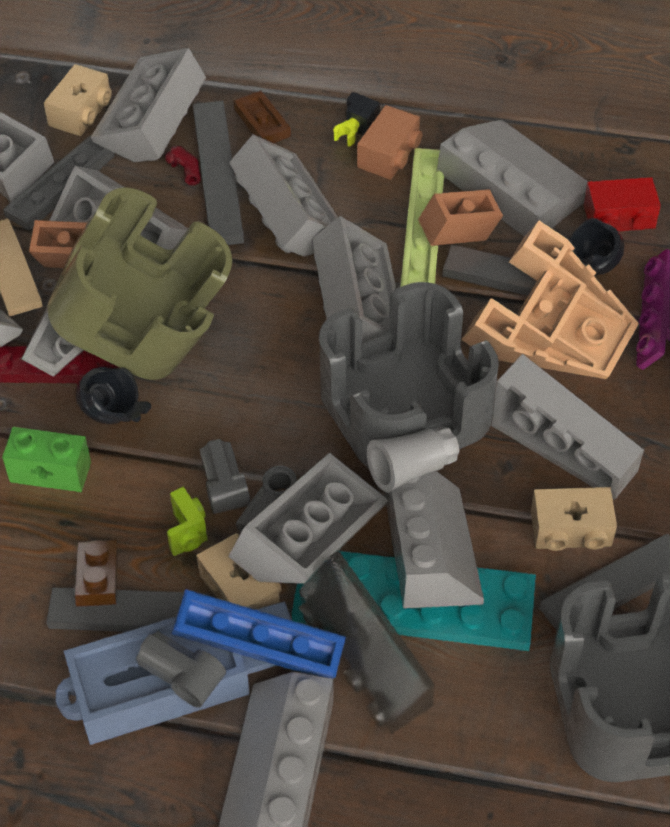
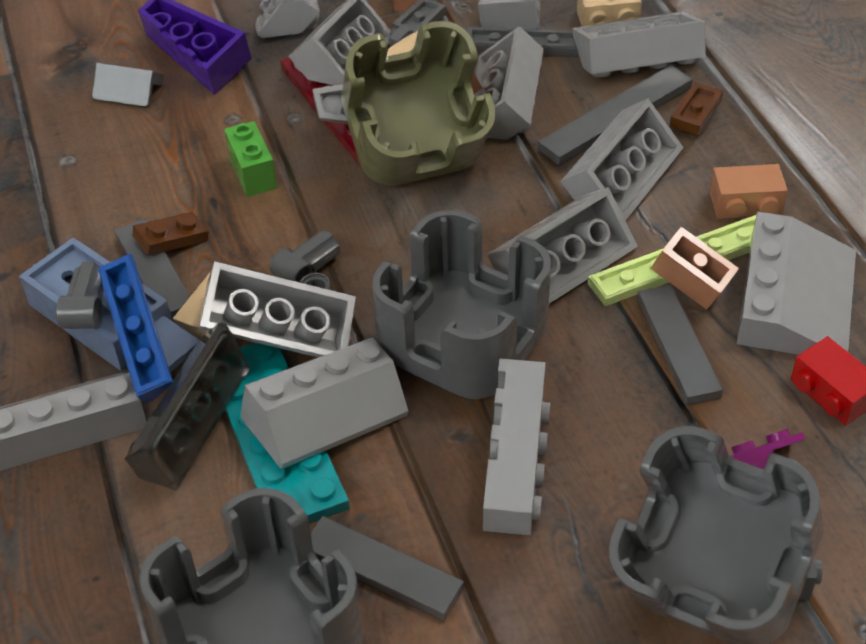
camera: 60 degrees right, 5 degrees down
(110, 396) = (329, 158): black hat -> none
(189, 162) = (608, 90): dark red arm -> none
(191, 528) = (254, 256): lime bracket -> none
(360, 115) = (761, 154): black piece -> none
(410, 456) = (369, 336): light grey plant -> none
(565, 320) = (648, 393): light nougat wedge -> none
(573, 518) = (426, 500): tan brick -> none
(598, 245) = (753, 381): black hat -> none

